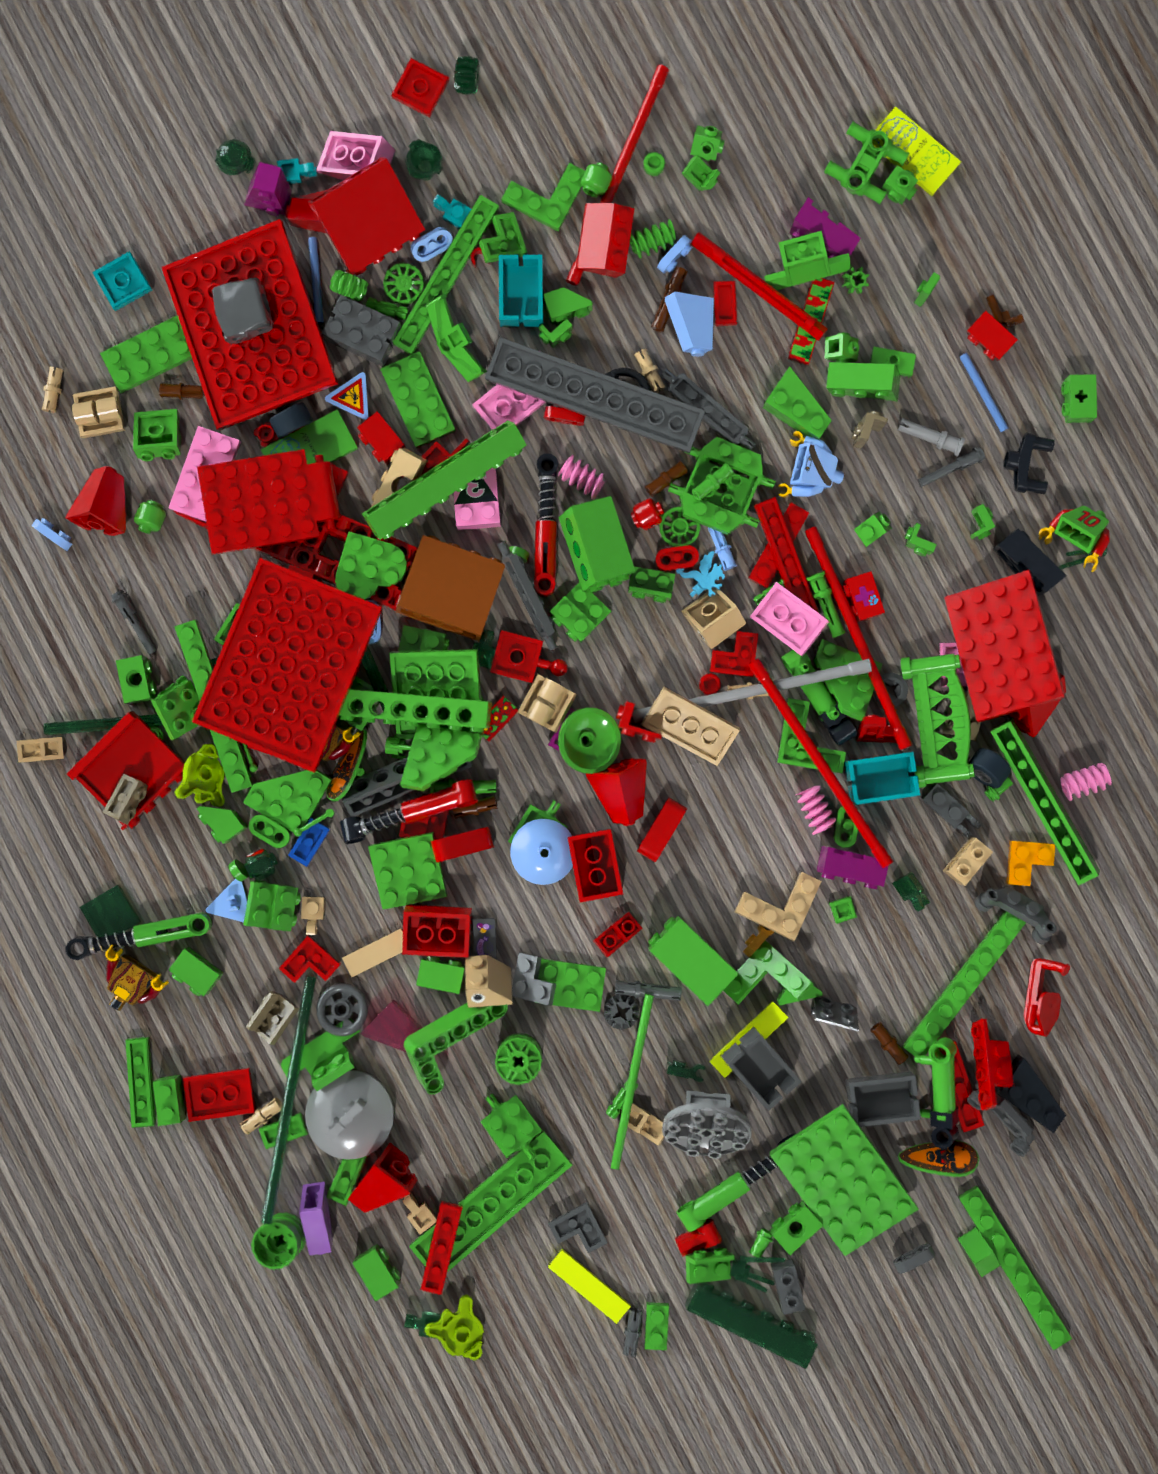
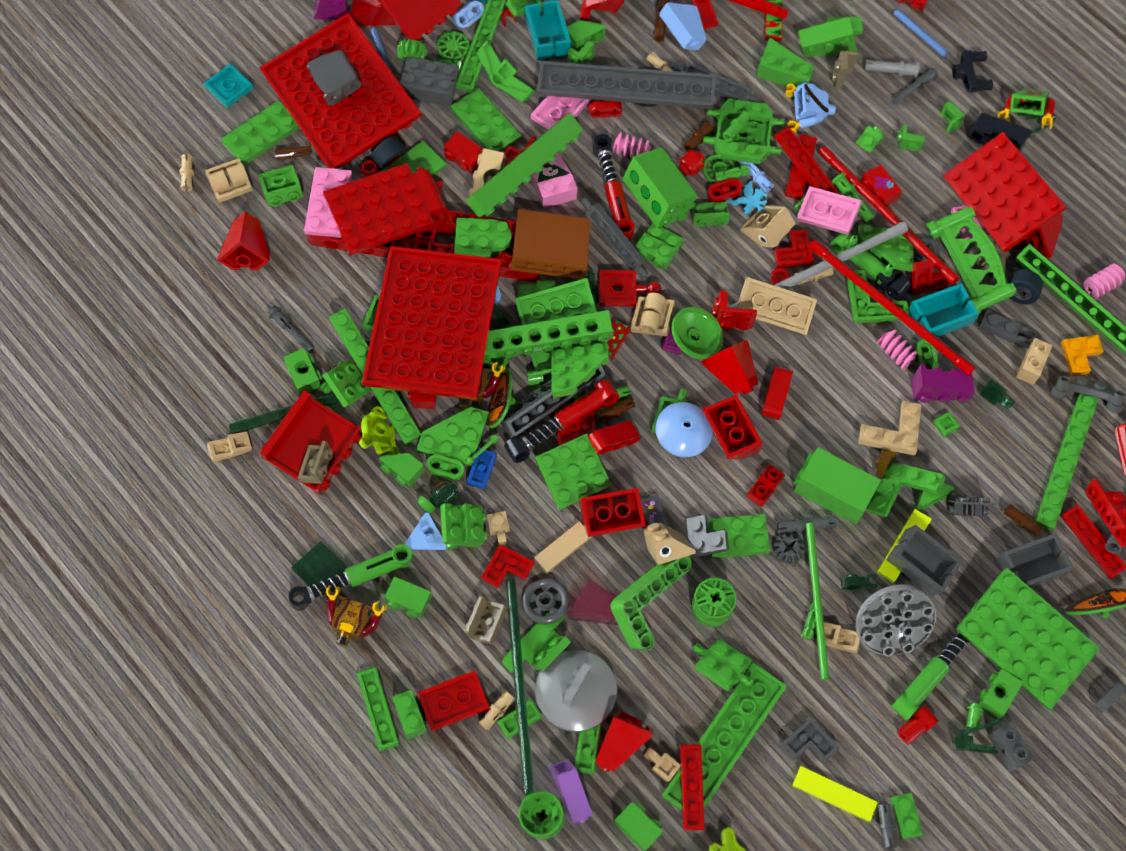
camera: 15 degrees left, 20 degrees down
(45, 528) = (207, 276): light blue plate -> none
(150, 516) = (287, 246): bright green head -> none
(253, 767) = (418, 421): bright green hinge -> none
(351, 397) = (432, 128): piece -> none
(440, 974) = (625, 550): bright green brick -> none
(691, 539) = (732, 173): none -> bright green axle
(708, 1266) = (935, 746): bright green bracket -> none
(751, 1323) = (990, 790): clear green brick -> none
(841, 348) = (803, 19): bright green brick -> none
(944, 1112) = (1089, 559): bright green piece -> none
(994, 793) = (1035, 307): bright green pin -> none
(1086, 389) = (993, 21): bright green brick -> none

